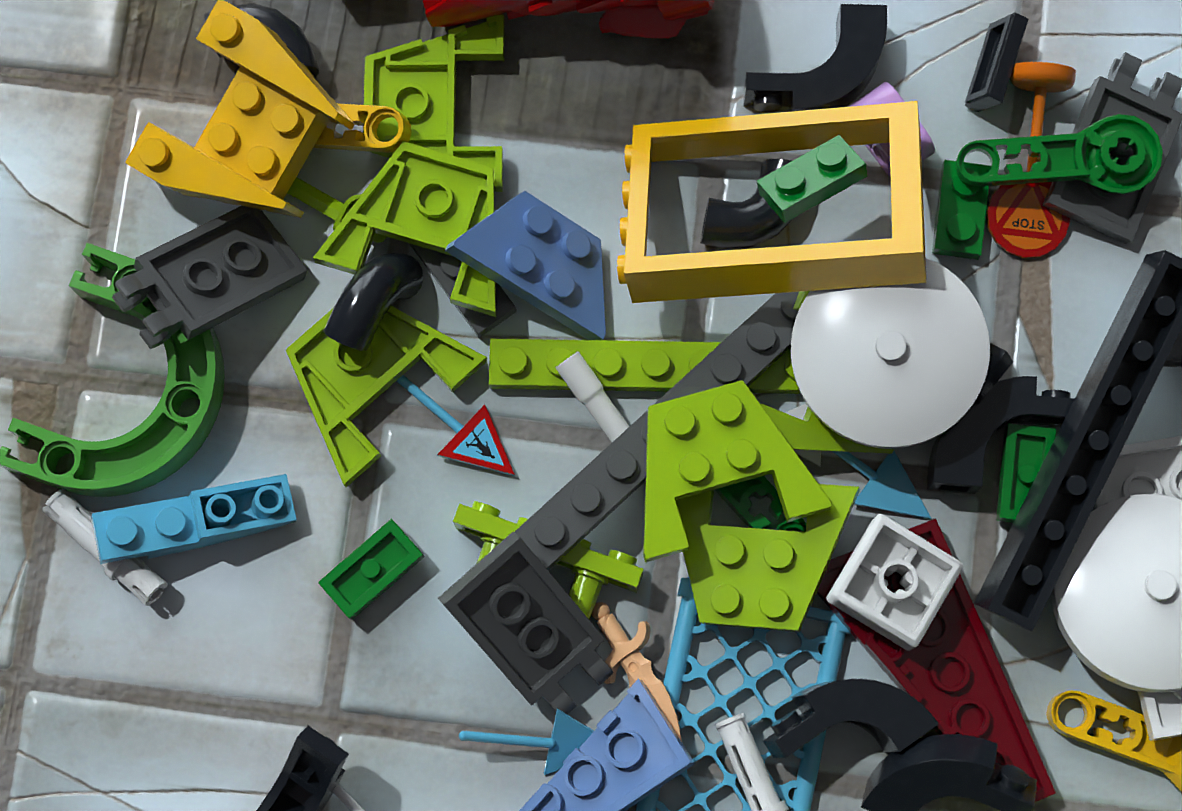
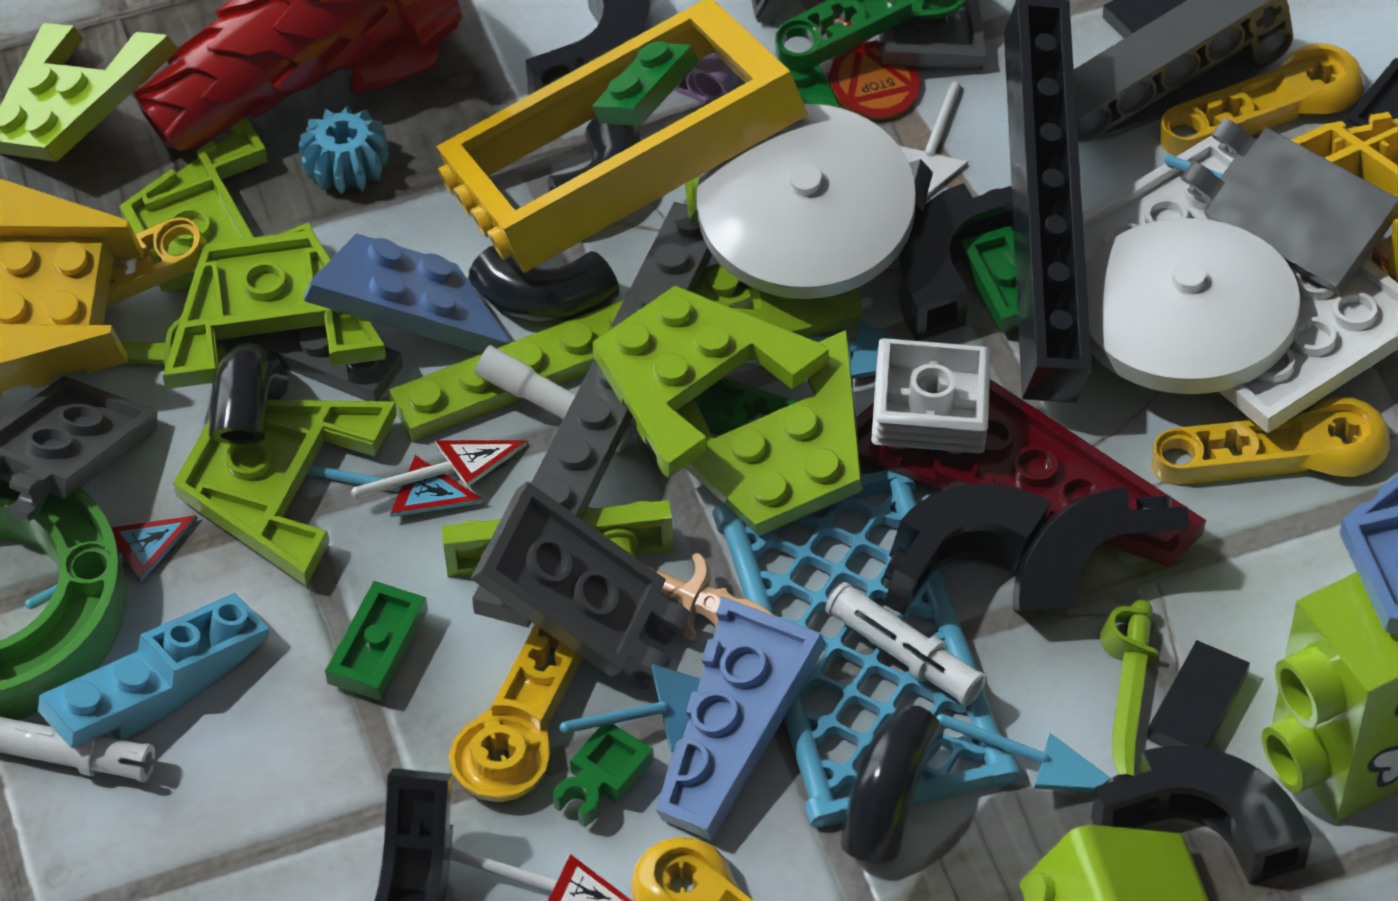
camera: 30 degrees left, 25 degrees down
(244, 385) = (139, 546): none -> piece
(437, 697) = (515, 724): none -> yellow beam
(485, 771) = (603, 766): none -> green plate
(523, 430) = (466, 457): none -> white piece
(558, 68) = (344, 149): none -> medium azure gear
(661, 318) = (544, 293): none -> black cylinder
(1023, 324) = (942, 166): none -> white piece

